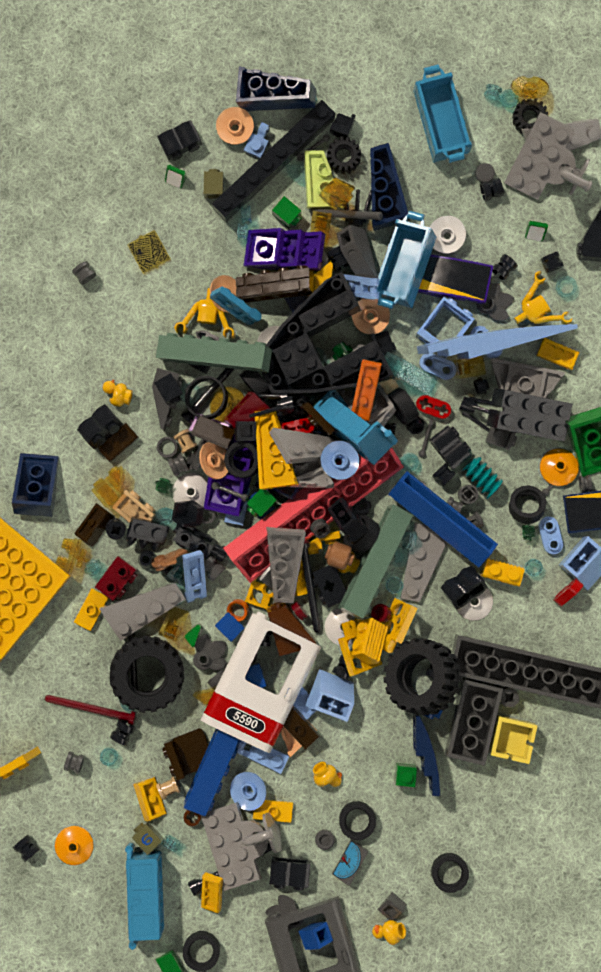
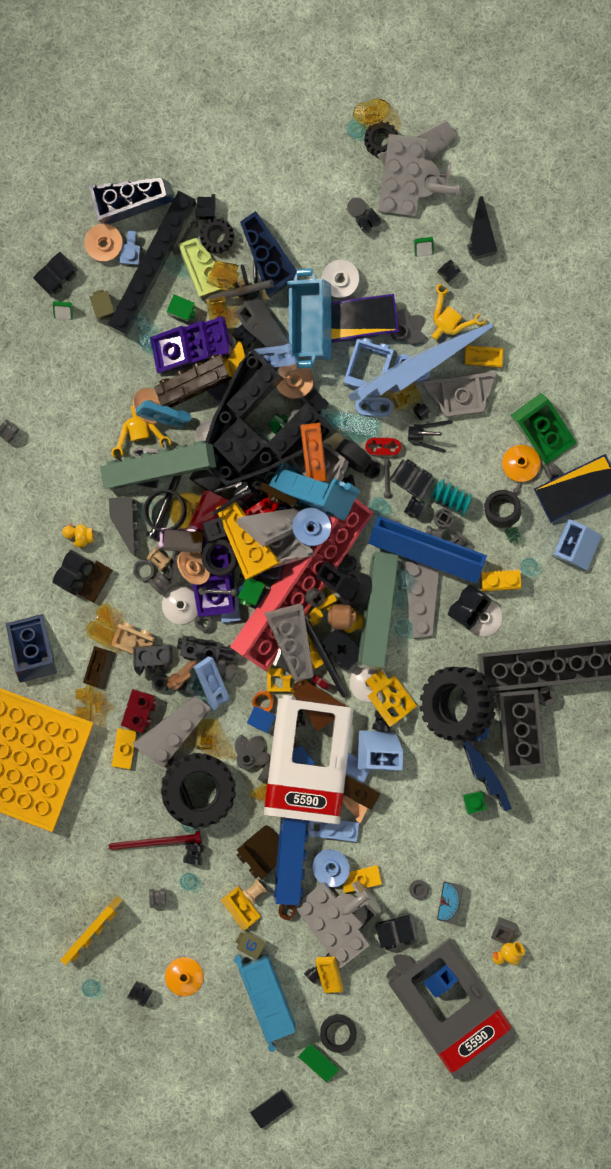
camera: 20 degrees left, 0 degrees up
(93, 567) = (112, 707): clear light blue plate -> none
(113, 525) = (118, 661): black wheel -> none
(148, 251) = (61, 390): clear yellow piece -> none
(163, 485) = (152, 608): clear green plate -> none
(164, 516) = (164, 636): clear light blue plate -> none
(169, 389) = (128, 514): black brick -> none
(171, 843) = (275, 942): clear light blue bush -> none
(187, 513) = (185, 626): black panel -> none
(193, 634) = (228, 739): green slope -> none
(326, 774) = (399, 827): yellow animal -> none
(368, 830) = (446, 846): black tyre -> none
(369, 641) = (397, 687): yellow brick -> none
(381, 613) = (400, 658): dark red tile -> none
(399, 629) = (415, 681): yellow piece -> none
(441, 116) = (297, 168): dark azure container -> none
(449, 888) = (532, 879): black tyre -> none
(493, 92) = (338, 127): clear light blue bush -> none
(501, 438) = (456, 453): dark grey bracket -> none
(504, 267) = (405, 291): black wheel -> none
(511, 737) = (560, 733): light yellow piece -> none
(529, 414) = (475, 423): black piece -> none
(548, 536) = (534, 530): light blue plate -> none
(560, 293) = (473, 282): clear light blue piece -> none
(568, 592) = (569, 578): red beam -> none

